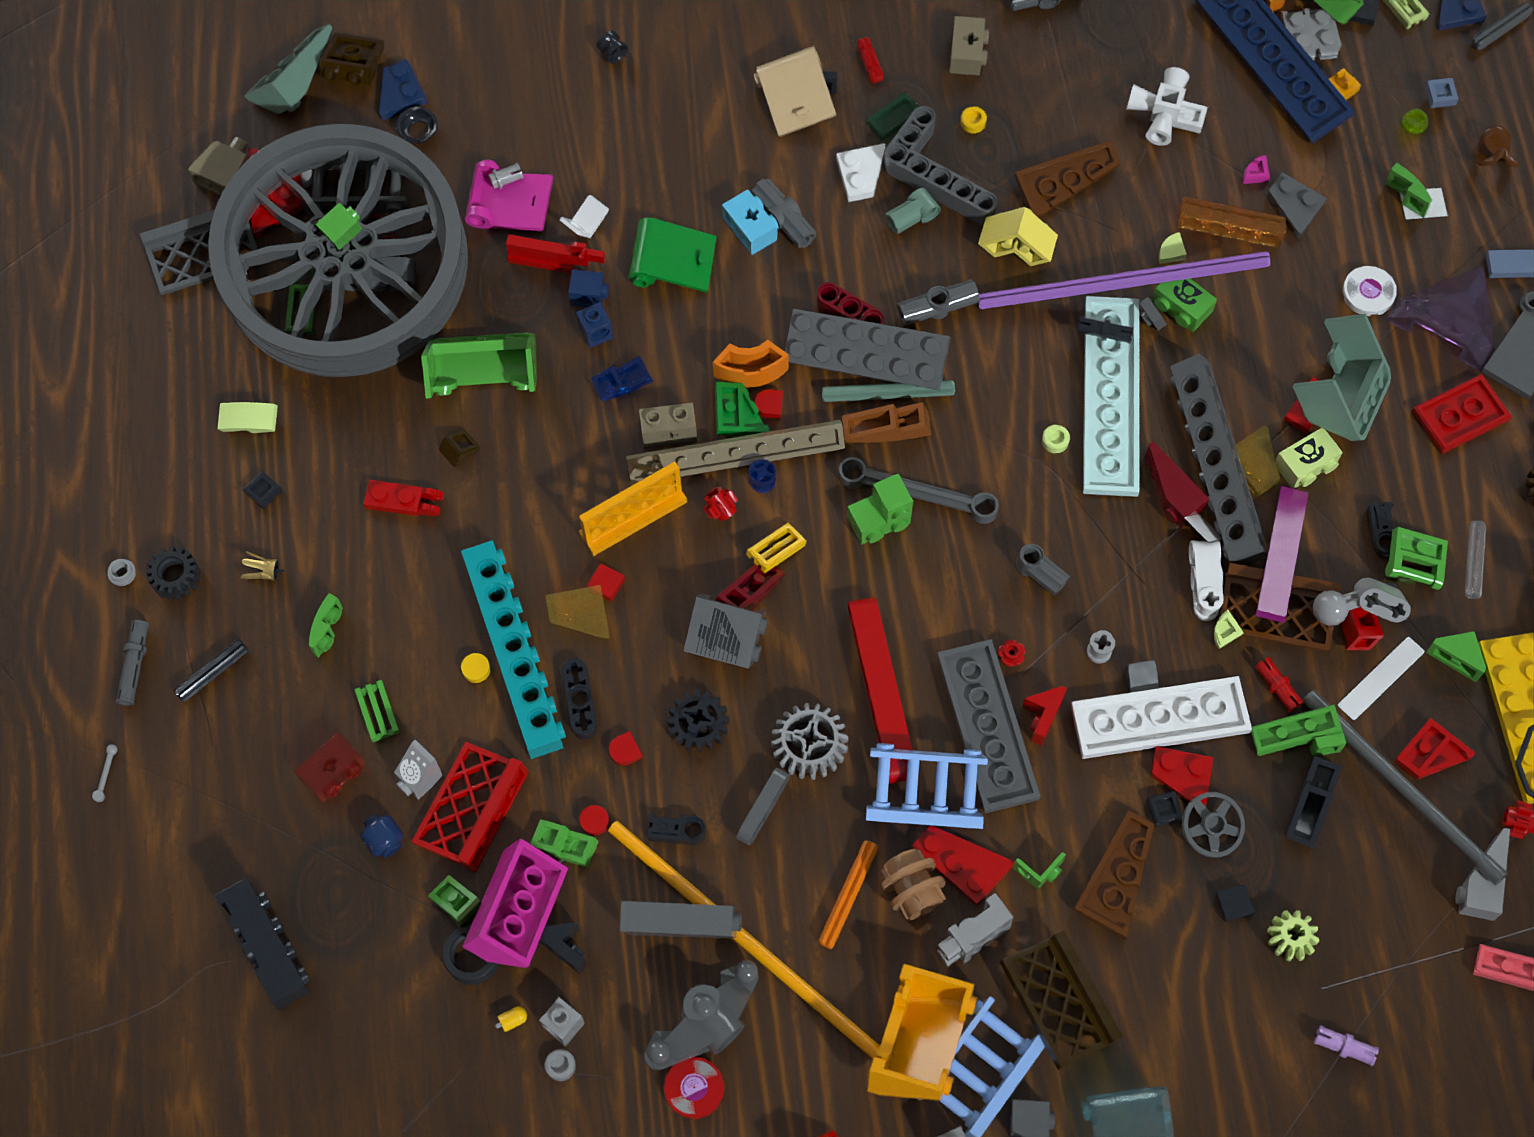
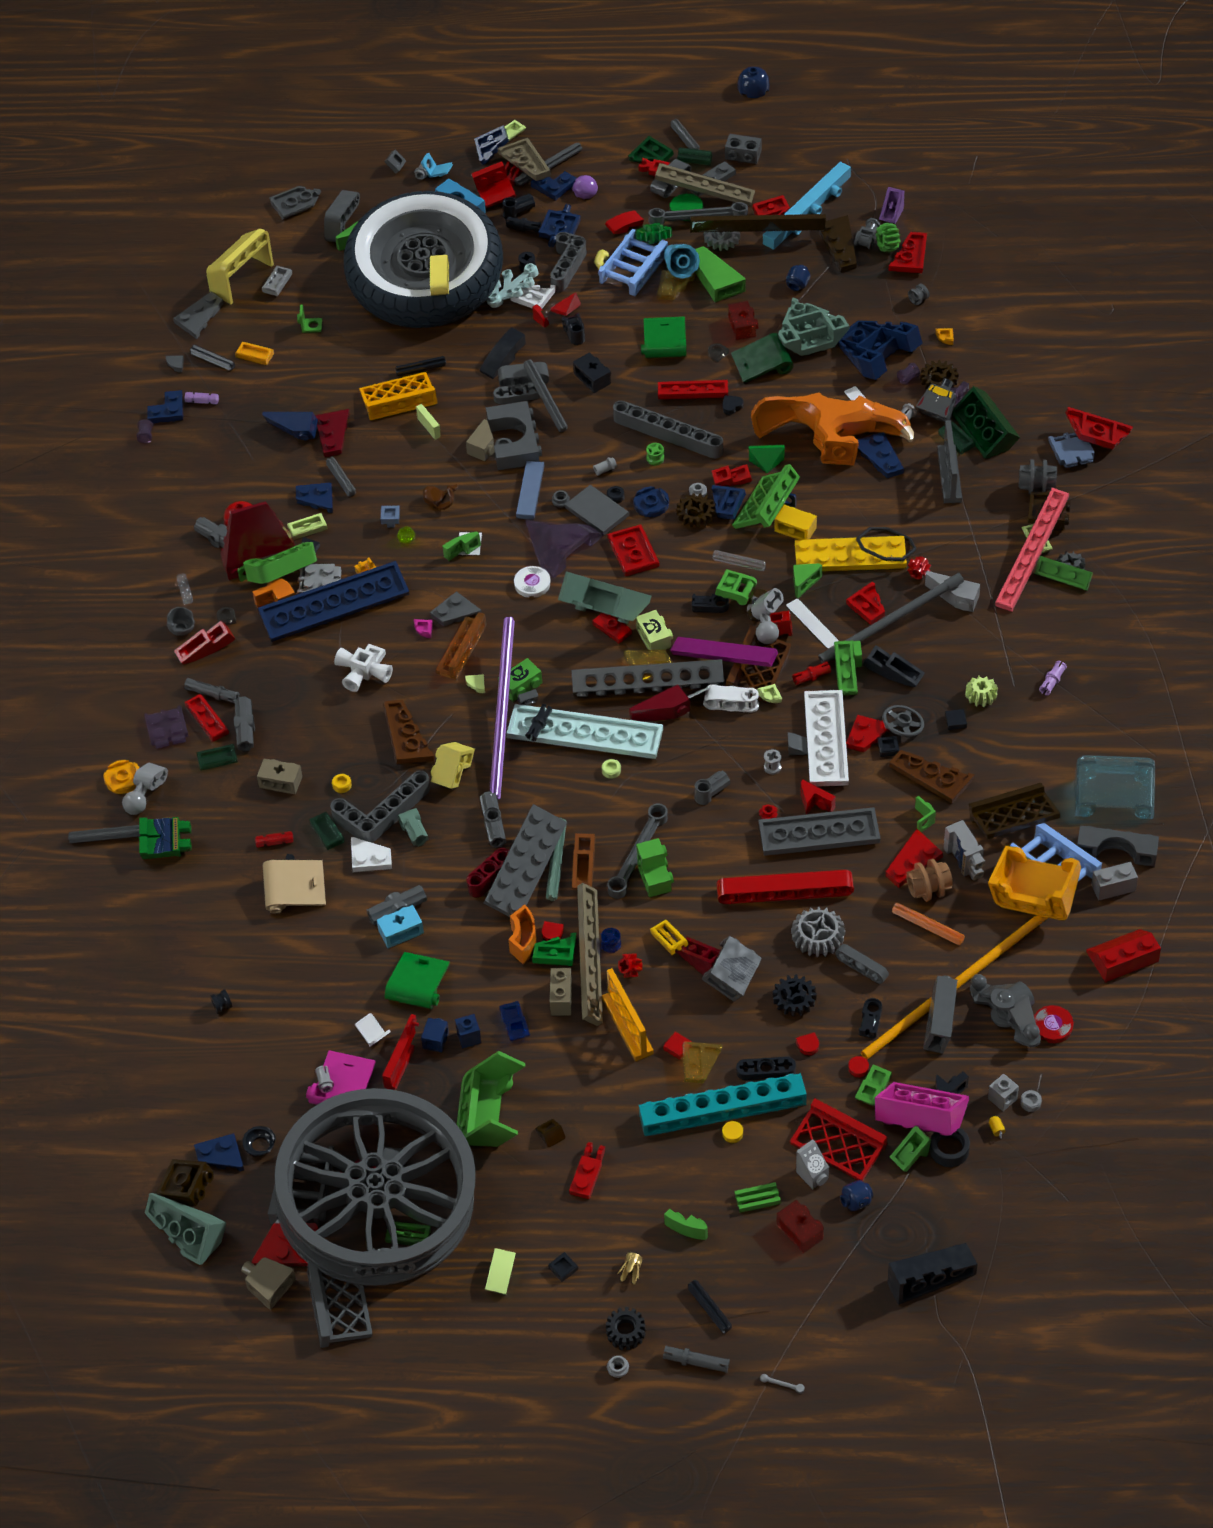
camera: 80 degrees left, 15 degrees down
(340, 225) = (366, 1168): bright green brick -> none
(910, 811) = (880, 864): light blue fence -> none

